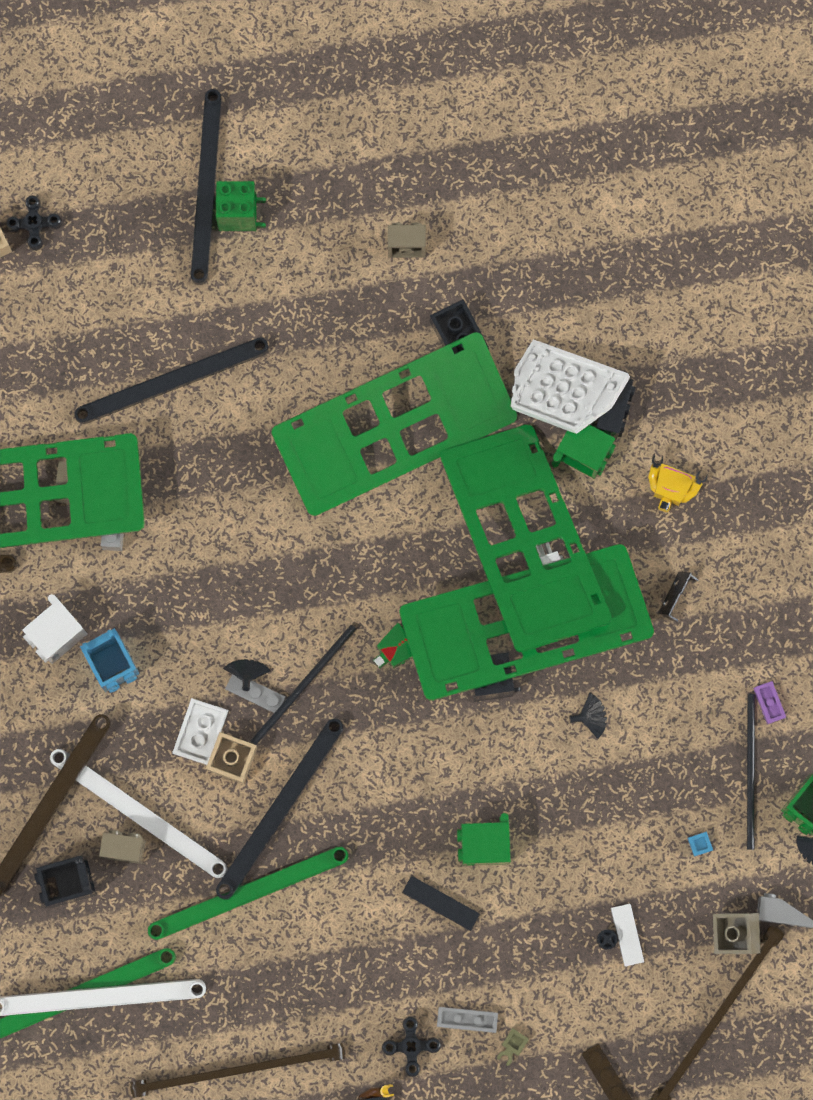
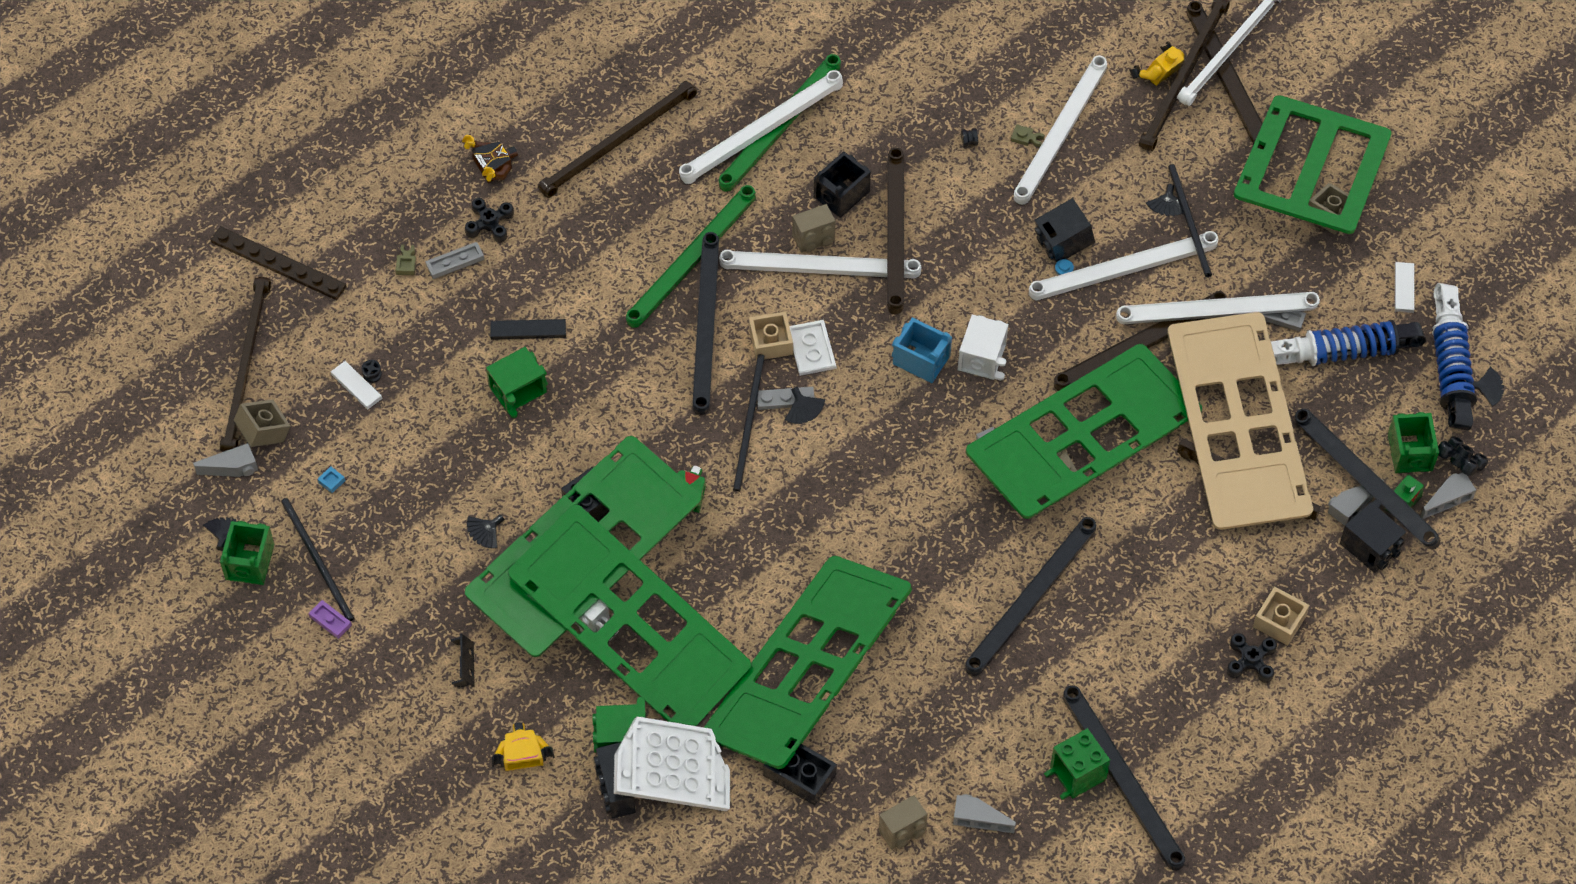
camera: 150 degrees right, 20 degrees down
(344, 223) = (977, 814): none -> light grey slope

